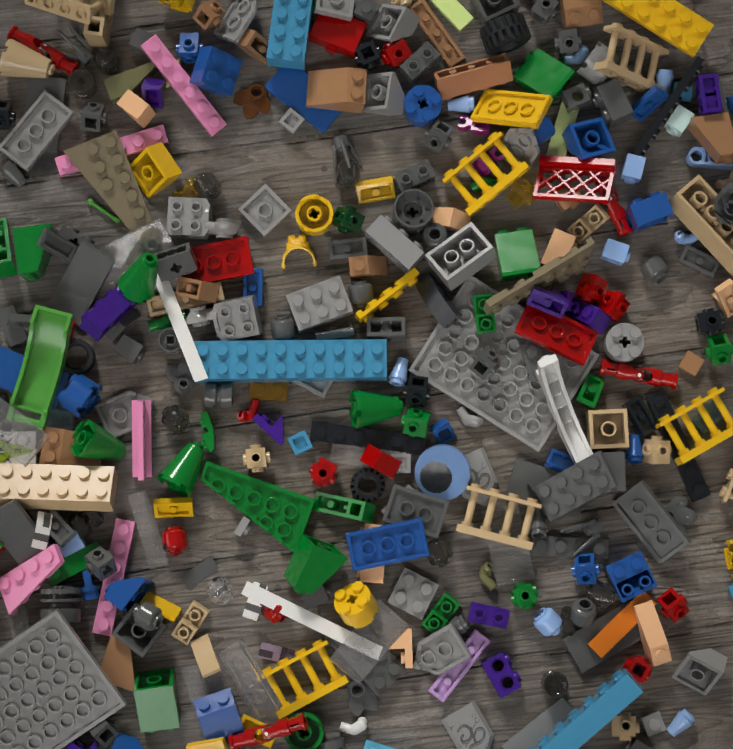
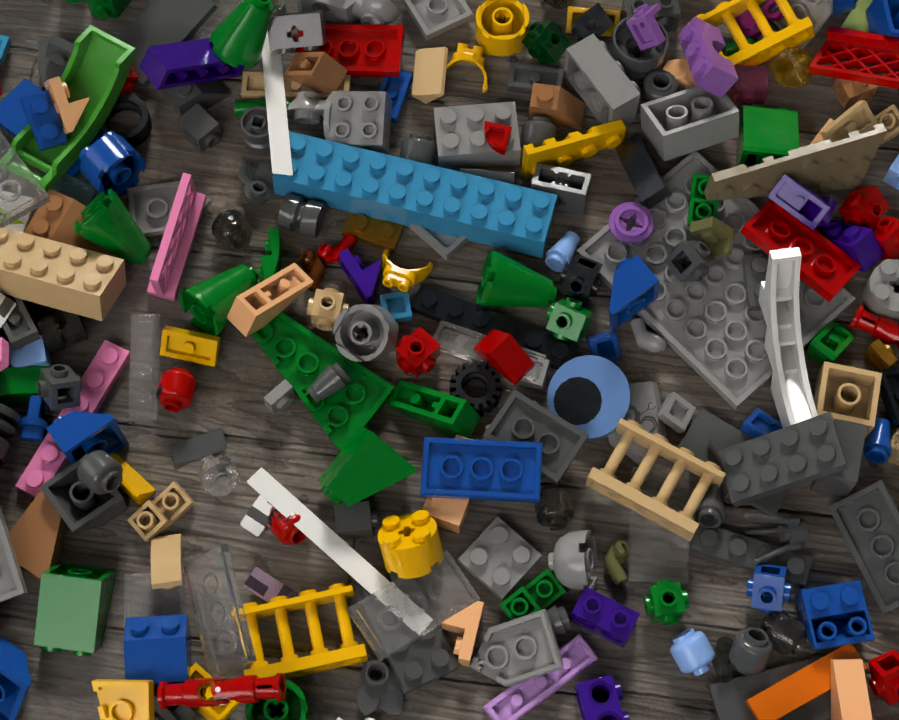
camera: 15 degrees right, 15 degrees down
(25, 380) = (43, 120): none -> blue plate
(41, 370) = (67, 112): none -> light nougat slope
(217, 463) = (267, 299): none -> light nougat slope
(238, 428) = (314, 267): none -> reddish brown arm
(272, 511) = (328, 382): none -> dark grey cone
(274, 264) = (429, 73): none -> tan slope
(284, 460) = (350, 335): none -> light grey brick
(297, 423) = (402, 277): none -> yellow helmet
(335, 307) = (497, 136): none -> red tile
(376, 197) = (592, 21): none -> black brick
(415, 201) = (645, 27): none -> medium lavender bracket
(447, 338) = (626, 212): none -> medium lavender gear
(451, 396) = (632, 290): none -> blue slope
(460, 584) = (574, 560): none -> light grey cylinder
(466, 221) = (701, 48): none -> medium lavender arch
(494, 215) = (751, 85): none -> clear pink brick
(500, 341) = (716, 235): none -> olive bracket
(500, 466) = (676, 412): none -> light grey plate
(570, 236) = (856, 118): none -> tan plate
(624, 390) = (880, 355): none -> pearl gold plate

